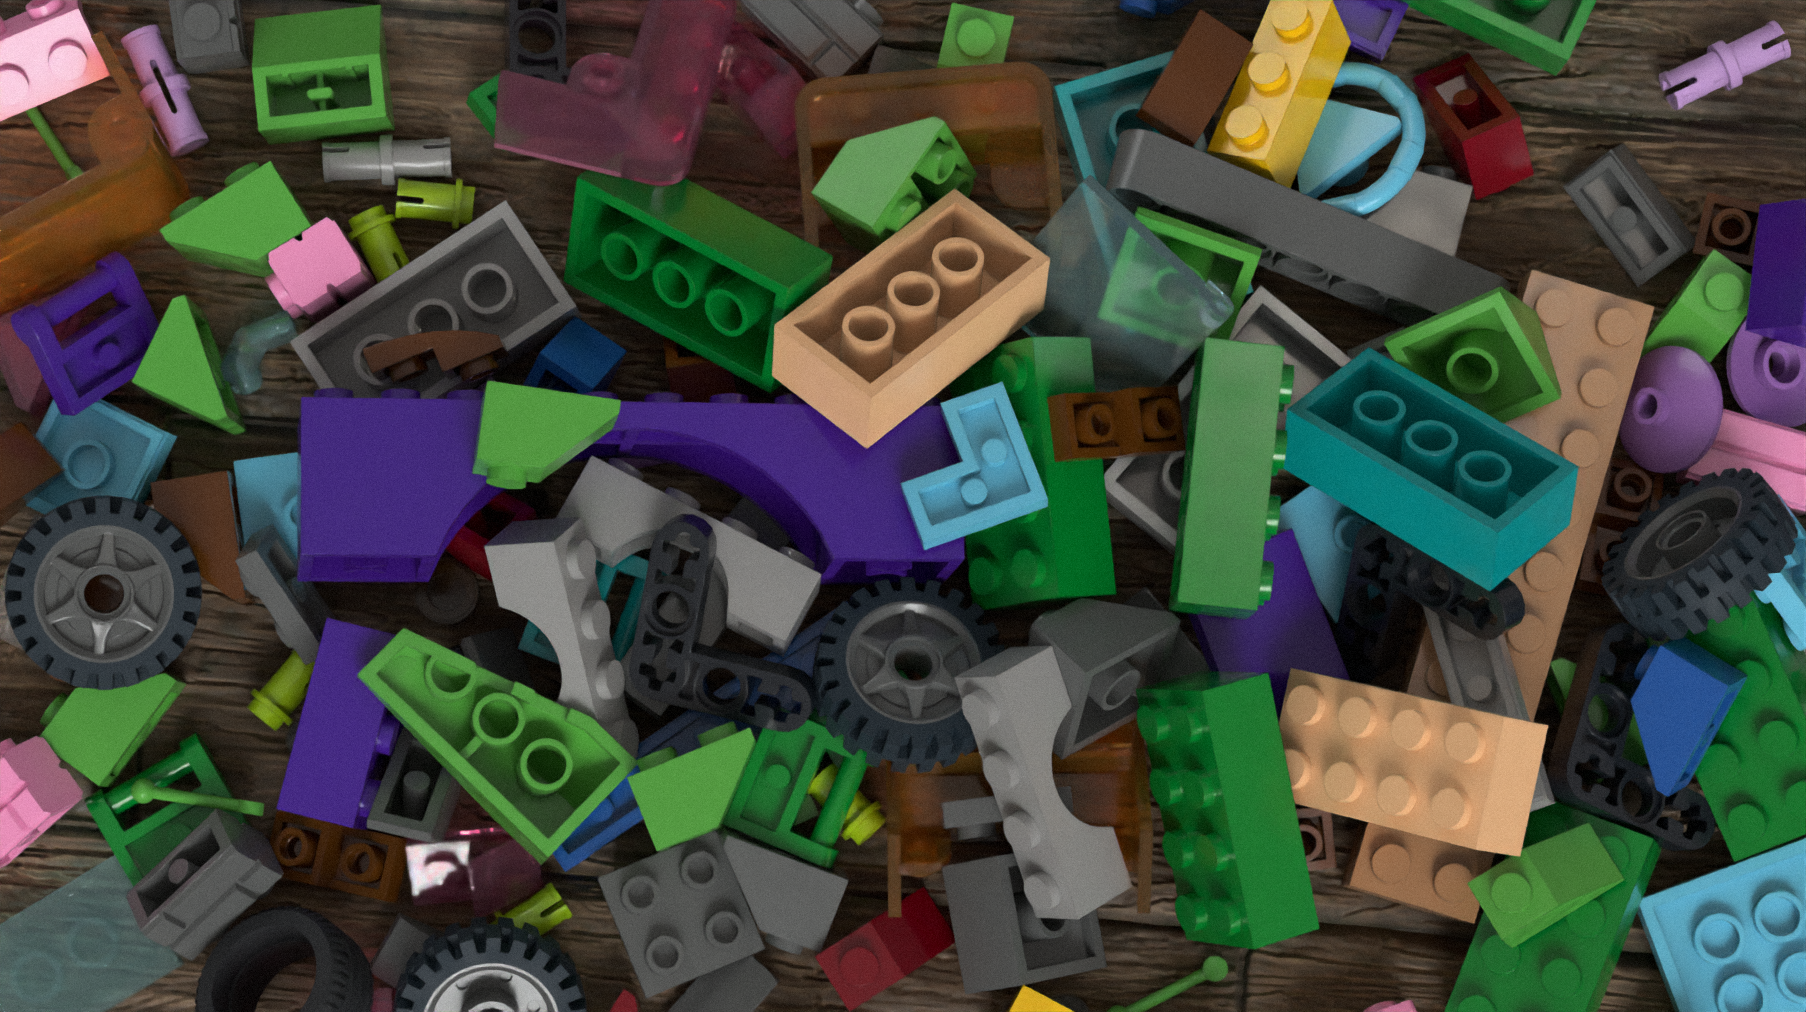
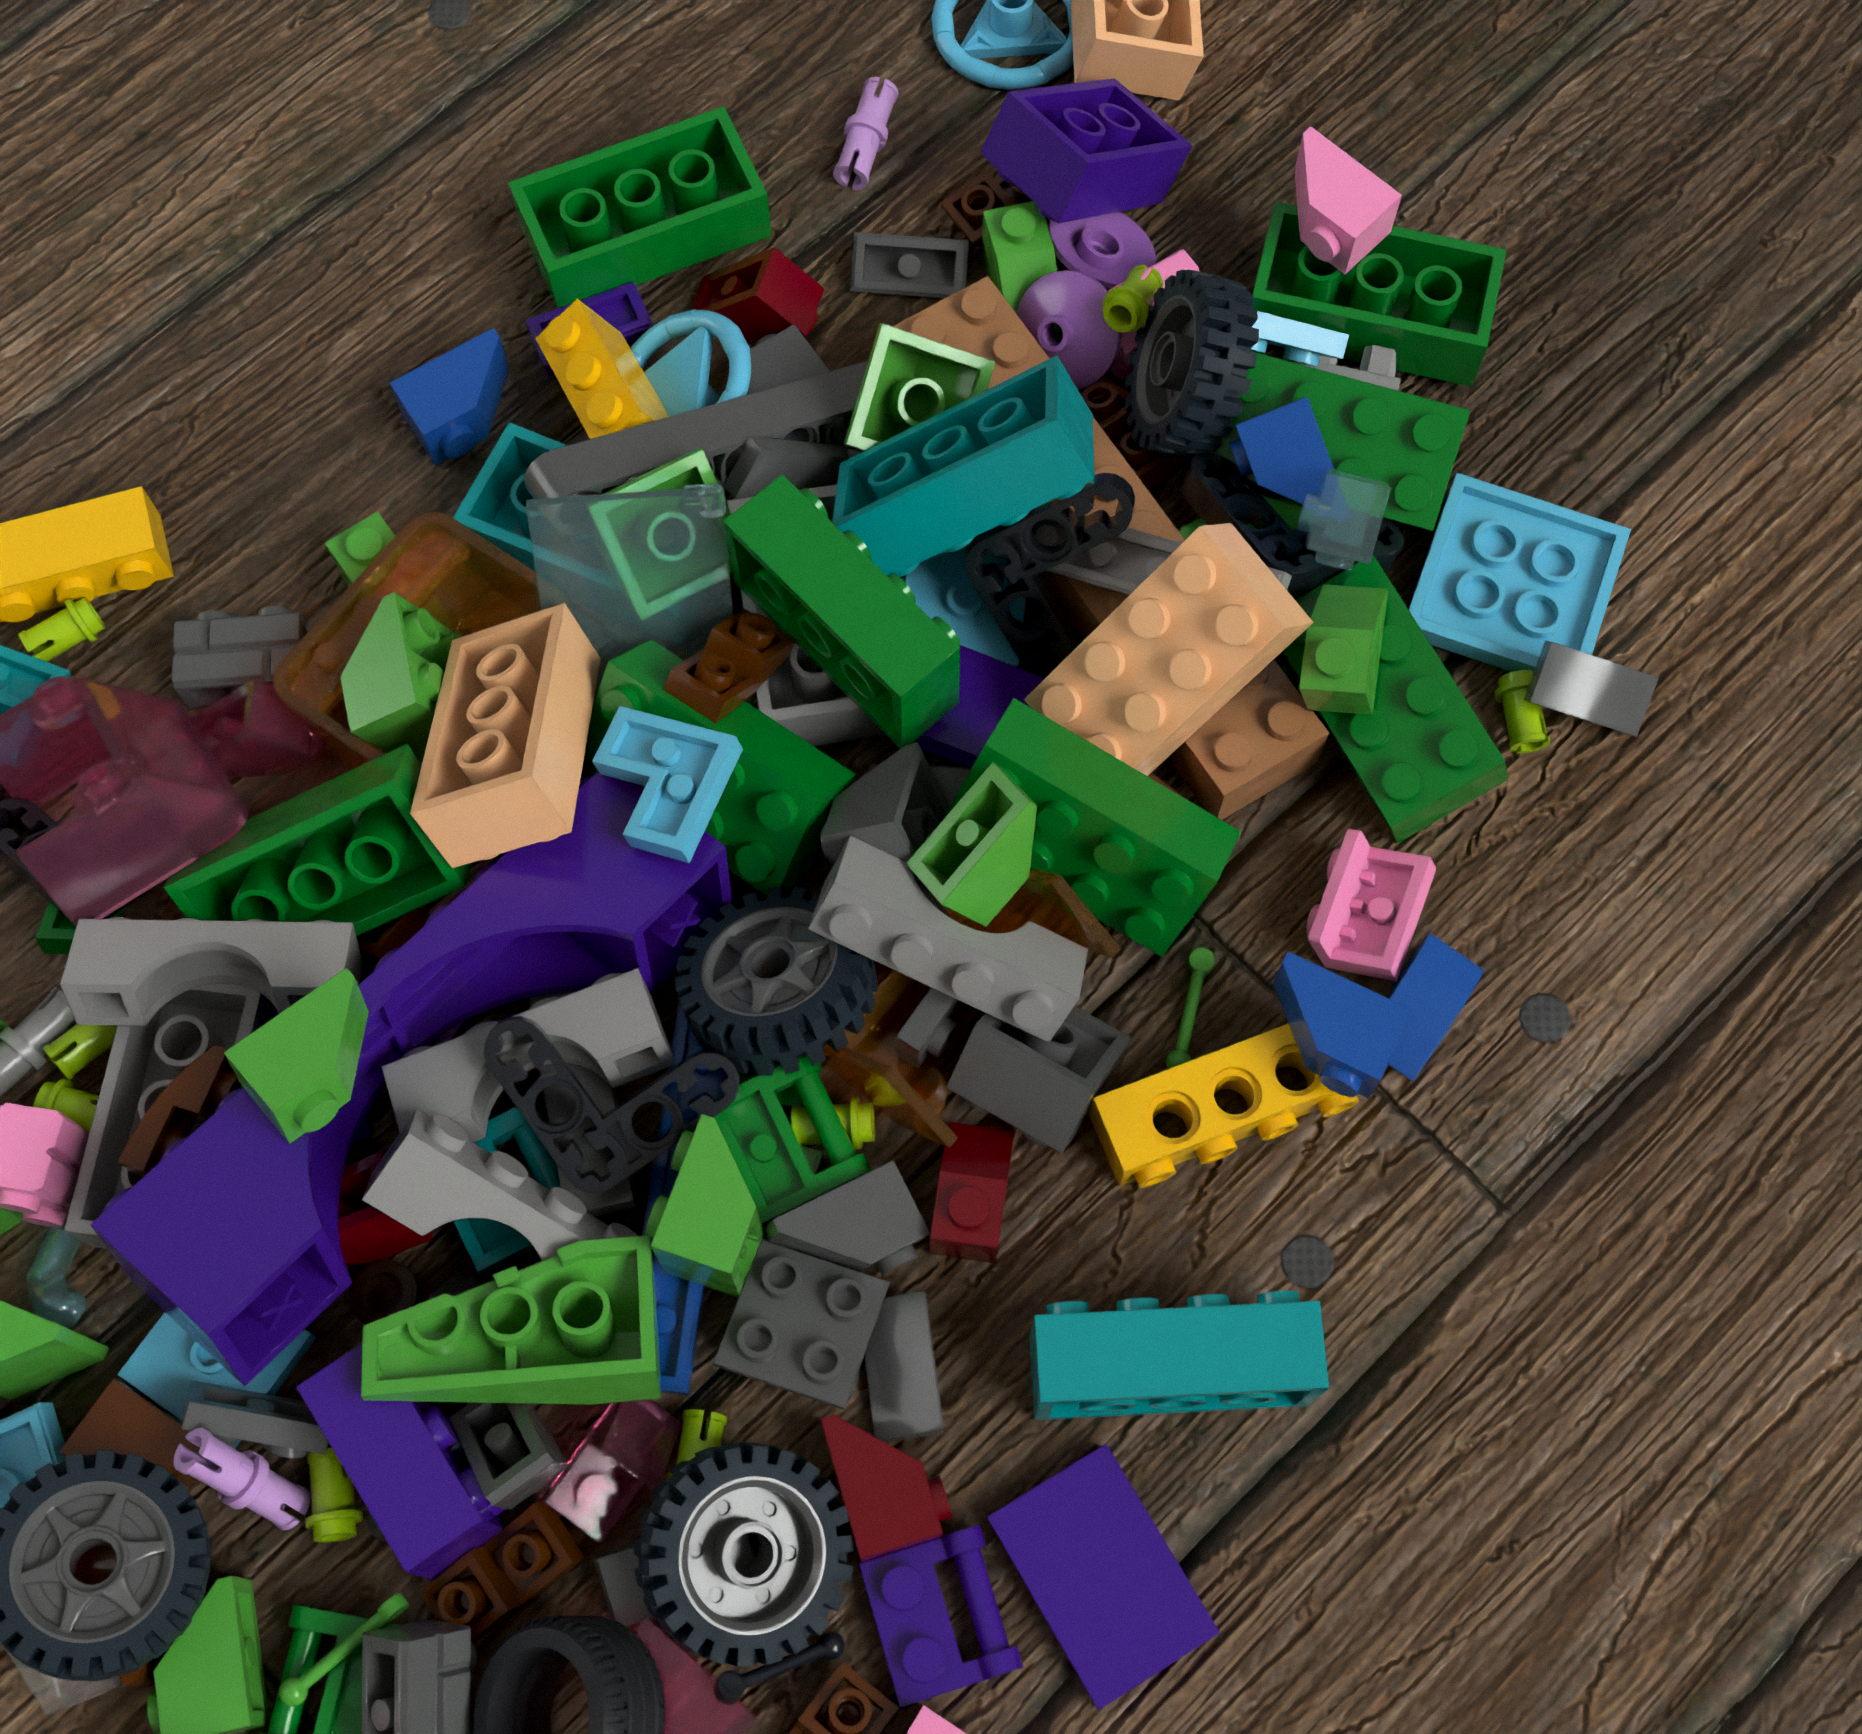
camera: 45 degrees left, 15 degrees down
(241, 625) = (241, 1479): none -> lavender pin
(503, 210) = (131, 968): none -> light grey arch
(1121, 751) = (980, 848): none -> bright green slope
(1194, 79) = (537, 415): reddish brown slope -> none
(1332, 303) = (800, 462): none -> dark grey tile
(1652, 797) = (1344, 518): none -> clear light blue brick
(1716, 453) = (1131, 300): none -> lime pin

